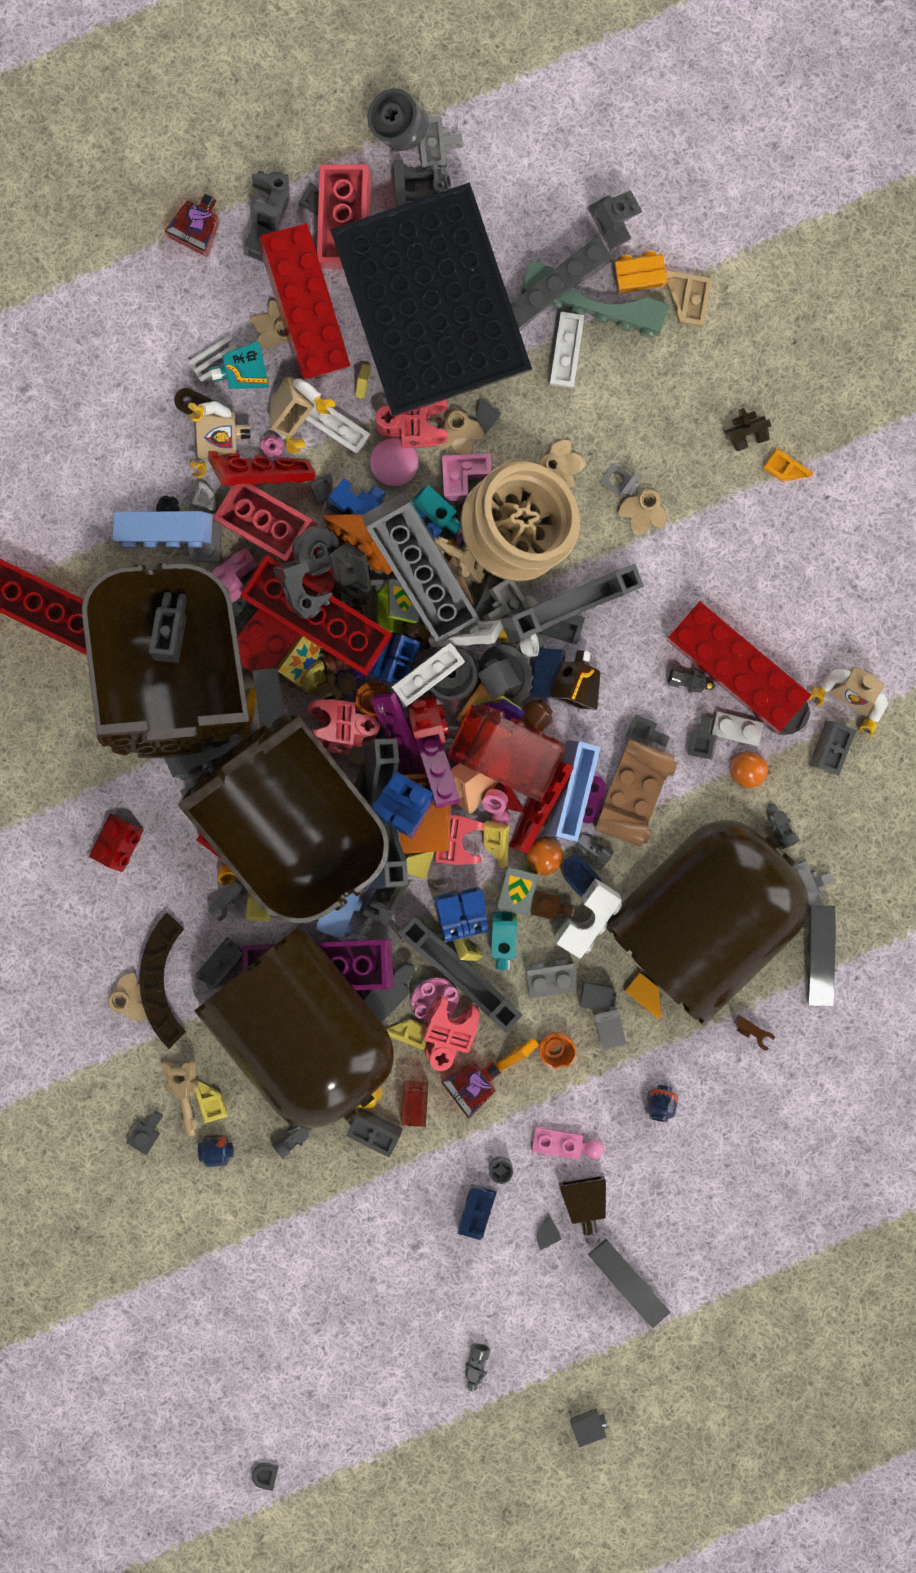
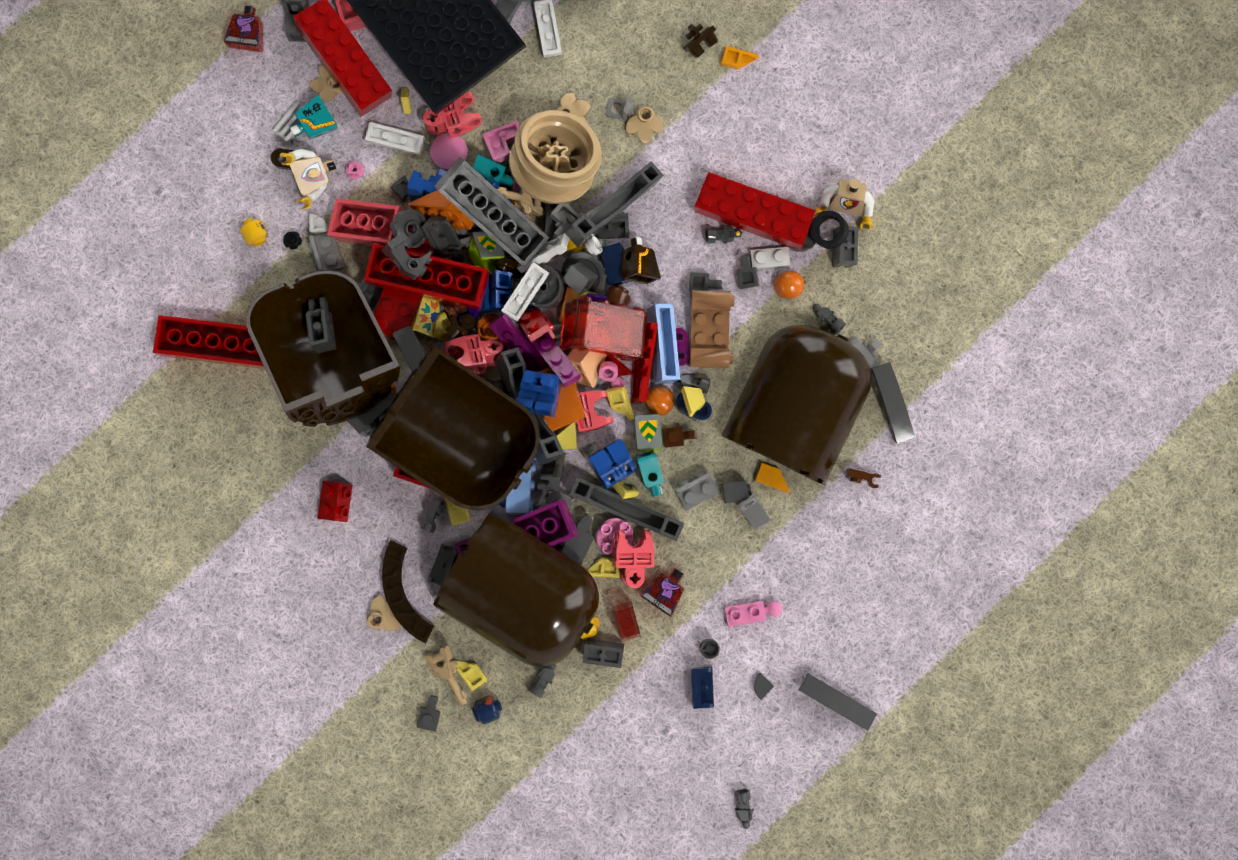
camera: 20 degrees left, 5 degrees down
(124, 482) = (254, 232): none -> yellow head
(162, 528) = (292, 254): light blue brick -> none
(225, 875) = (428, 496): light orange hinge -> none
(233, 570) = (356, 268): bright pink plate -> none
(238, 470) = (350, 188): red wing -> none
(251, 702) = (403, 370): light orange tile -> none
(290, 408) = (358, 135): tan torso -> none
(461, 436) = (491, 116): tan plate -> none
(487, 415) = (505, 95): dark grey tile -> none
(517, 1054) = (691, 556): light orange tile -> none
(564, 1057) = (713, 538): orange hair -> none
(579, 937) = (707, 451): white arch -> none
(584, 871) = (693, 399): none -> light yellow tile
(585, 1201) = (782, 650): dark brown torso -> none
(589, 1427) = (847, 825): dark grey brick -> none
(661, 1103) = (813, 556): dark blue head -> none
(807, 709) = (837, 241): none -> black tyre

